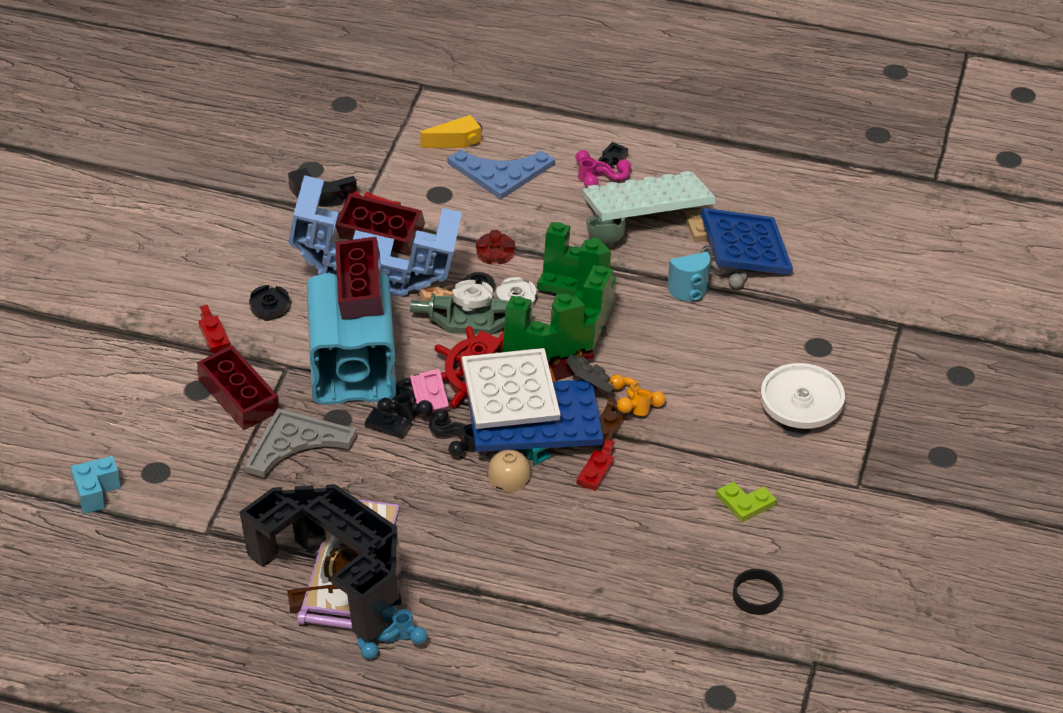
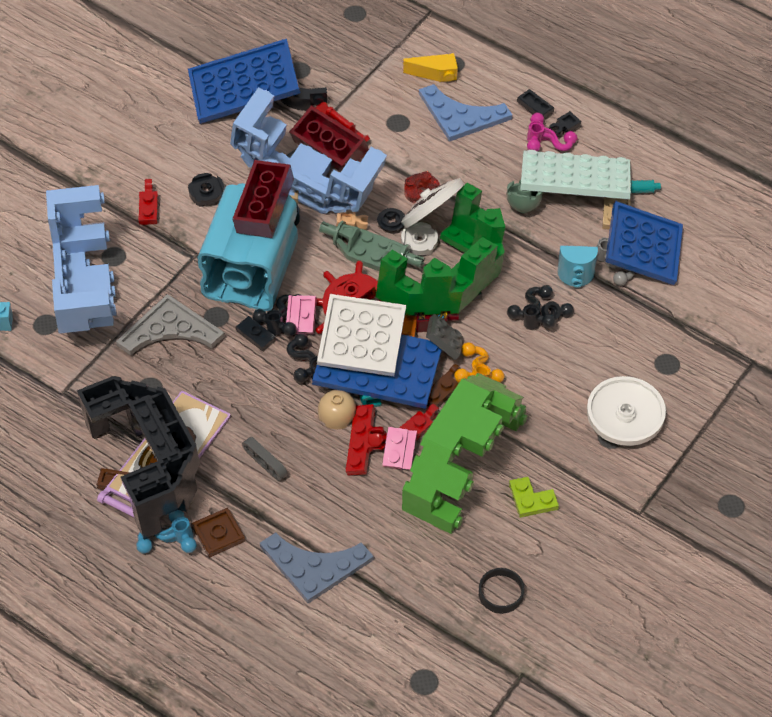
camera: 20 degrees right, 10 degrees up
(184, 430) = (80, 291): none -> light blue brick
(237, 387) = (142, 265): dark red brick -> none
(258, 189) = (230, 82): none -> blue plate
(441, 617) = (218, 532): none -> reddish brown tile
(468, 540) = (264, 458): none -> dark grey beam
(472, 295) = (386, 231): white plate -> none
(518, 251) = (431, 200): none -> white dish
(551, 491) = (363, 440): none -> red plate
(555, 628) = (312, 571): none -> sand blue plate
(572, 143) = (535, 103): none -> black plate
(592, 489) = (399, 448): none -> bright pink plate
(663, 433) = (467, 421): none -> bright green brick
(665, 331) = (531, 312): none -> black piece
(684, 326) = (565, 310): none -> black plate
(722, 192) = (644, 186): none -> teal cylinder

